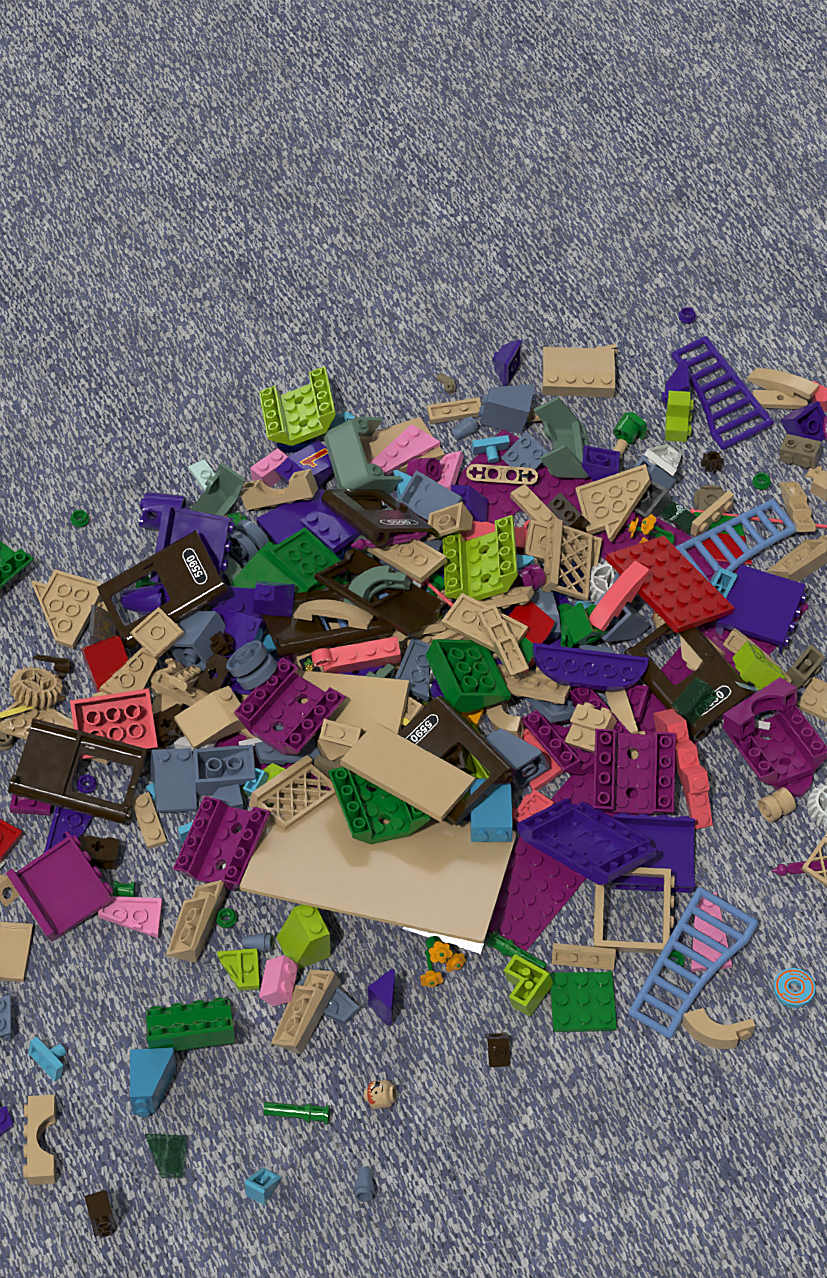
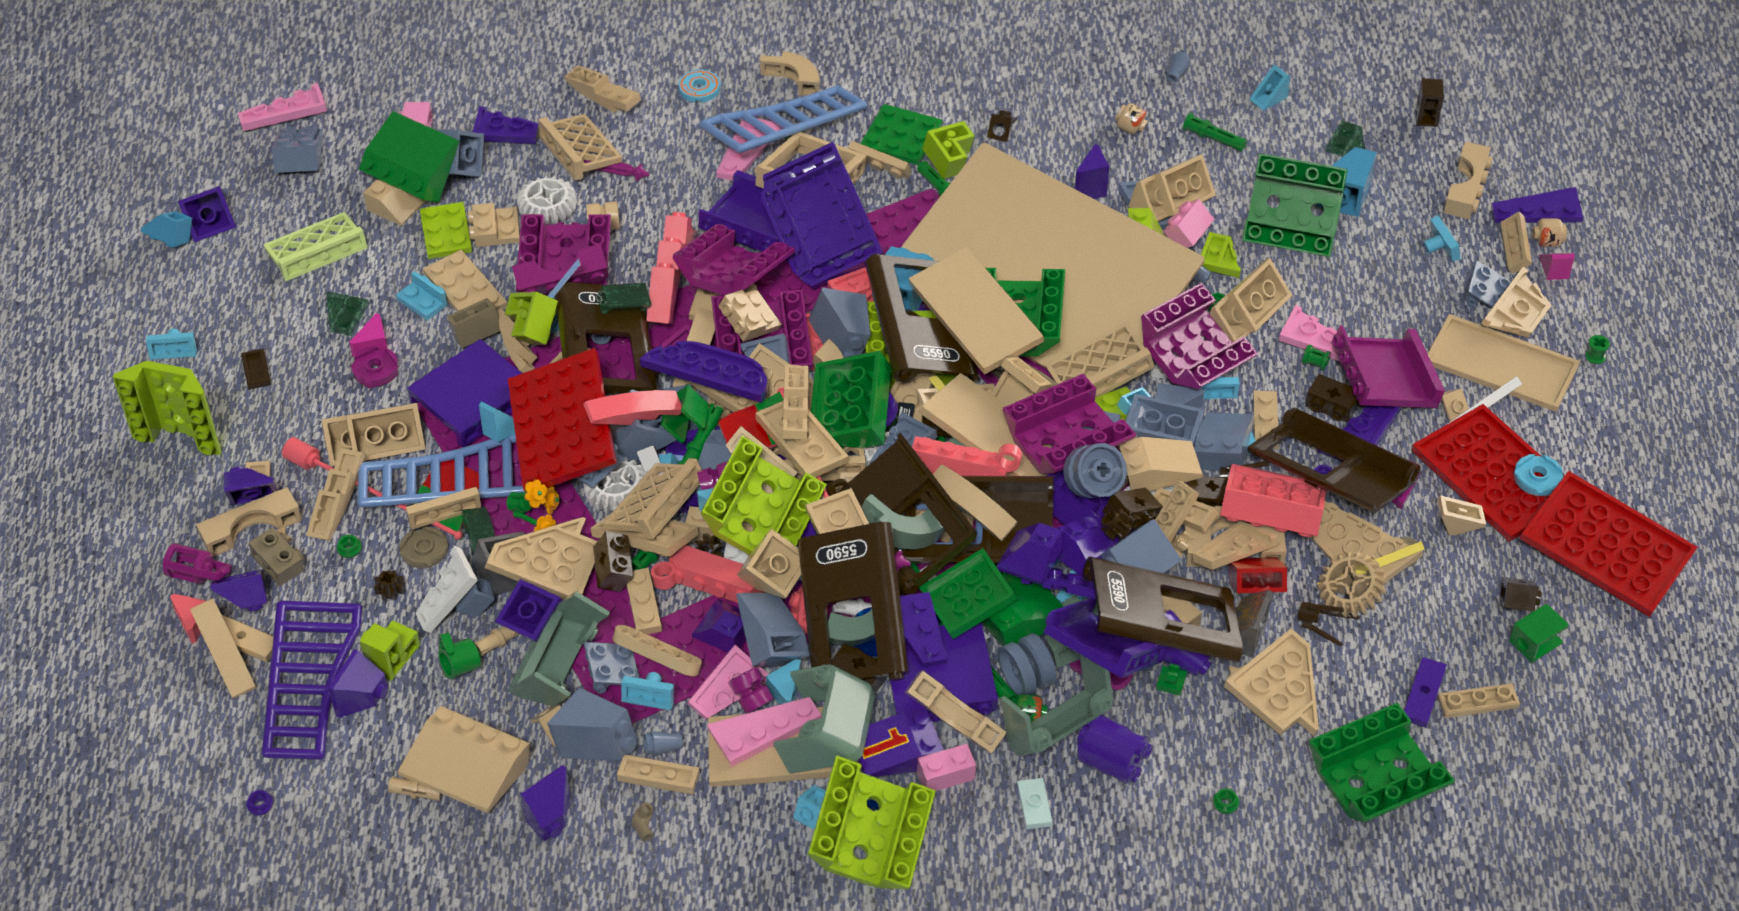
camera: 155 degrees left, 5 degrees down
(157, 633) = (1189, 560): tan plate -> none

